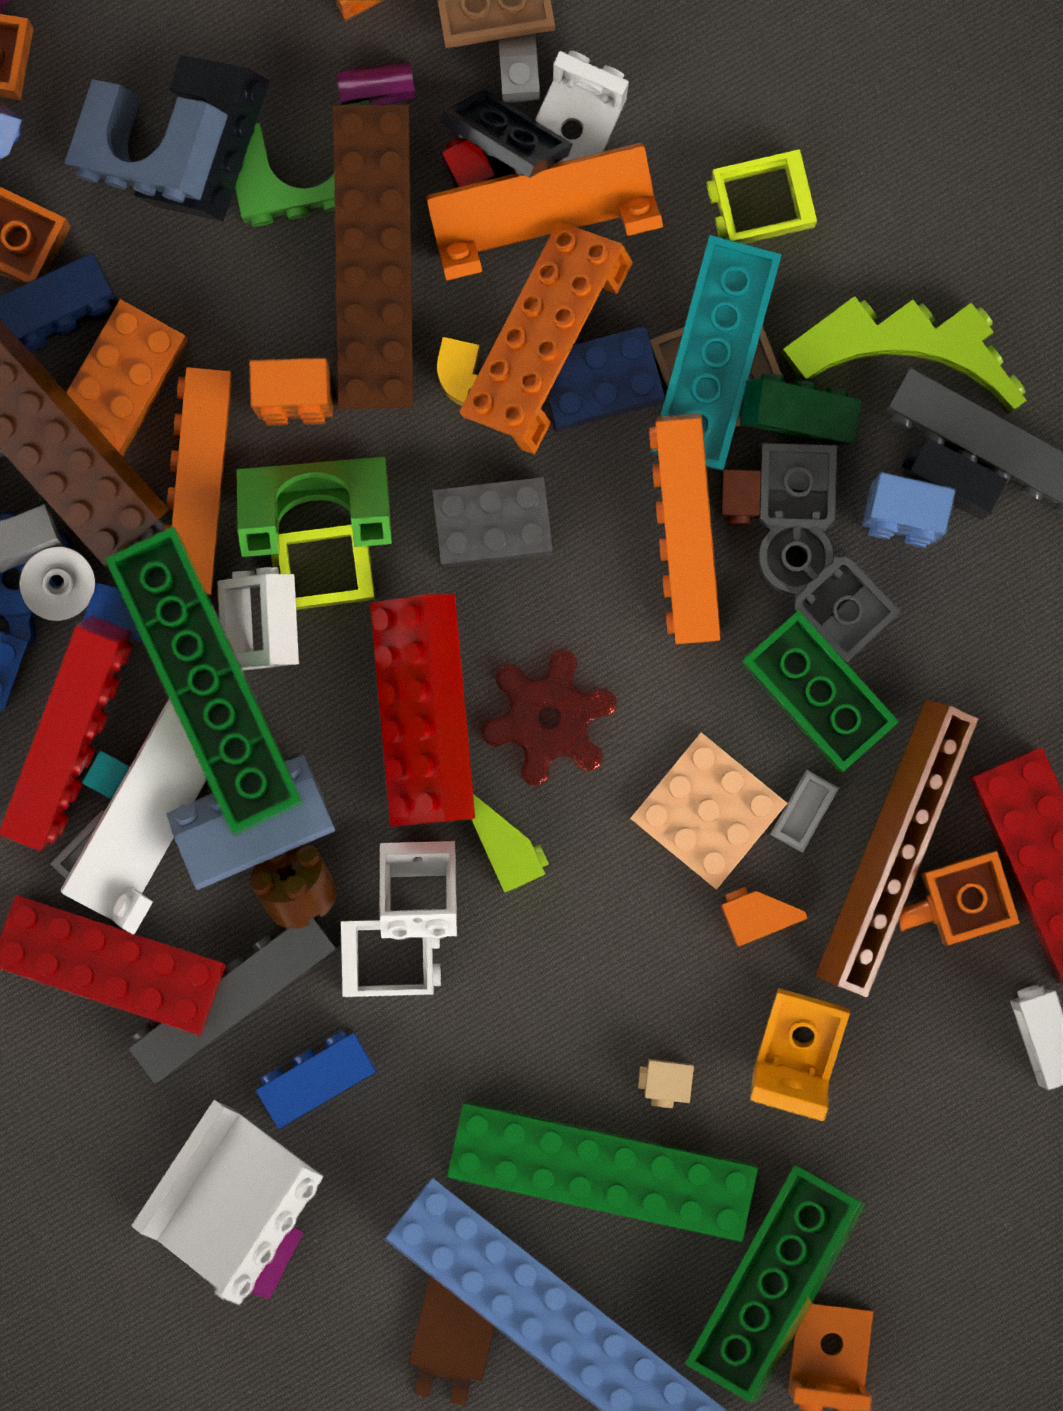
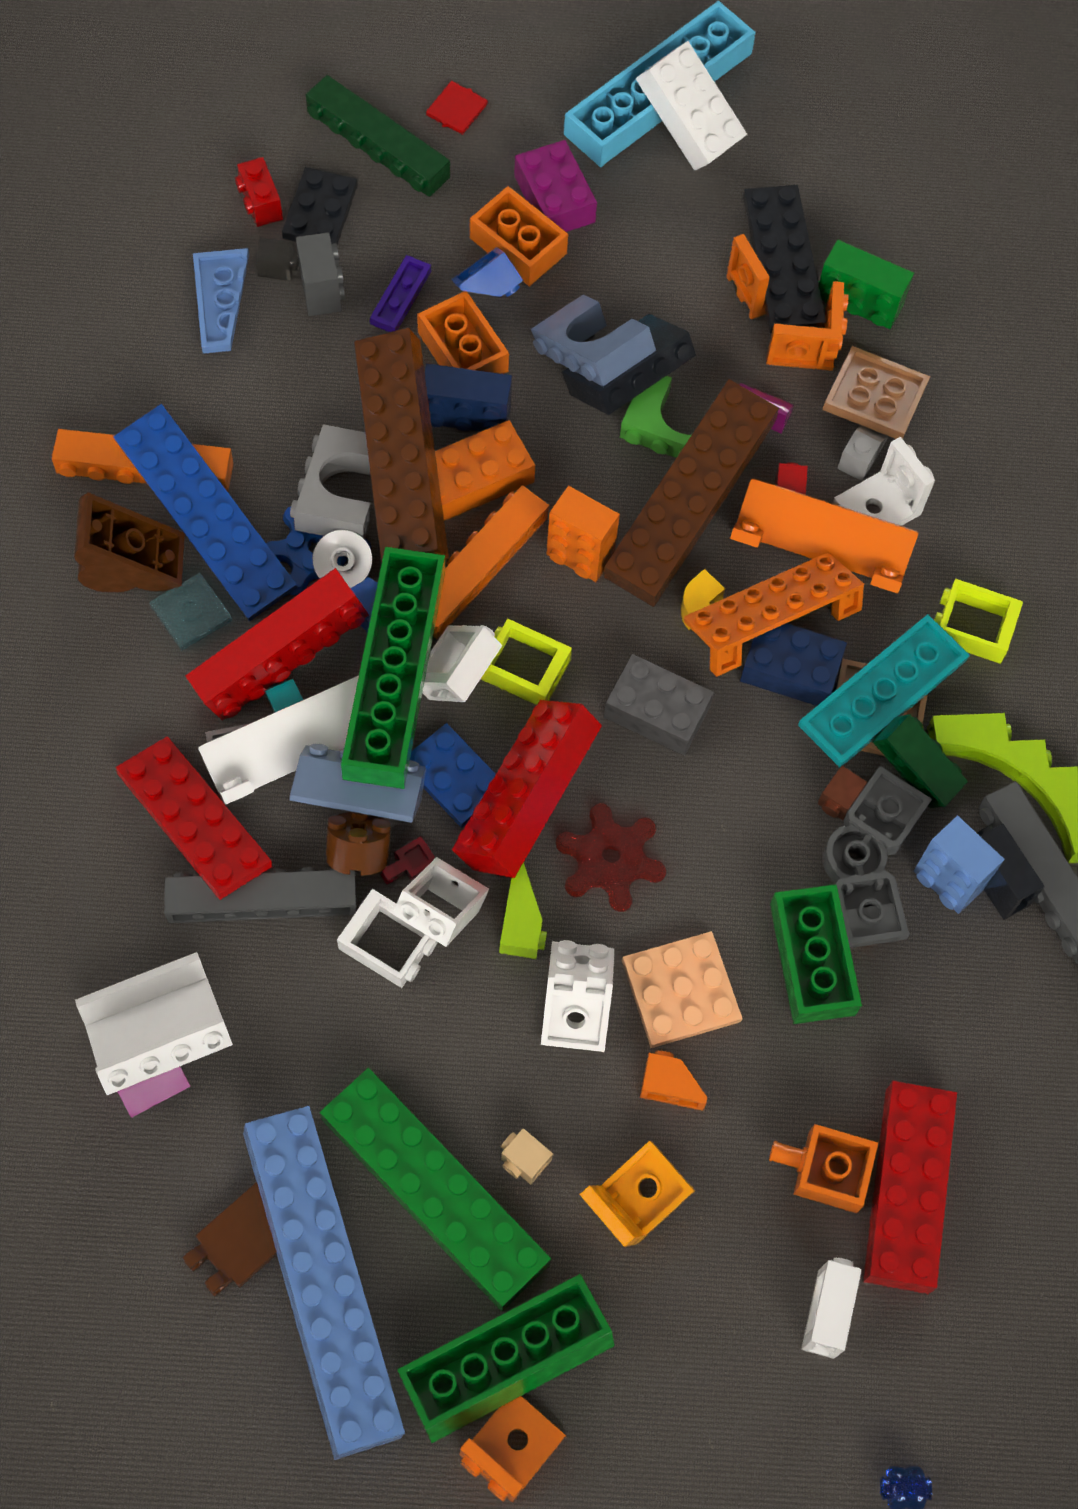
camera: 30 degrees right, 20 degrees down
(271, 491) = (518, 593): bright green arch -> none
(315, 1078) = (277, 987): blue brick -> none
(333, 736) = (453, 773): none -> blue plate
(355, 857) = (411, 860): none -> dark red plate
(506, 133) = (829, 474): black plate -> none
(612, 887) = (582, 983): none -> white bracket
(687, 528) = (792, 784): orange brick -> none
(804, 811) = (750, 1034): light grey tile -> none
(896, 847) = (802, 1098): dark orange brick -> none

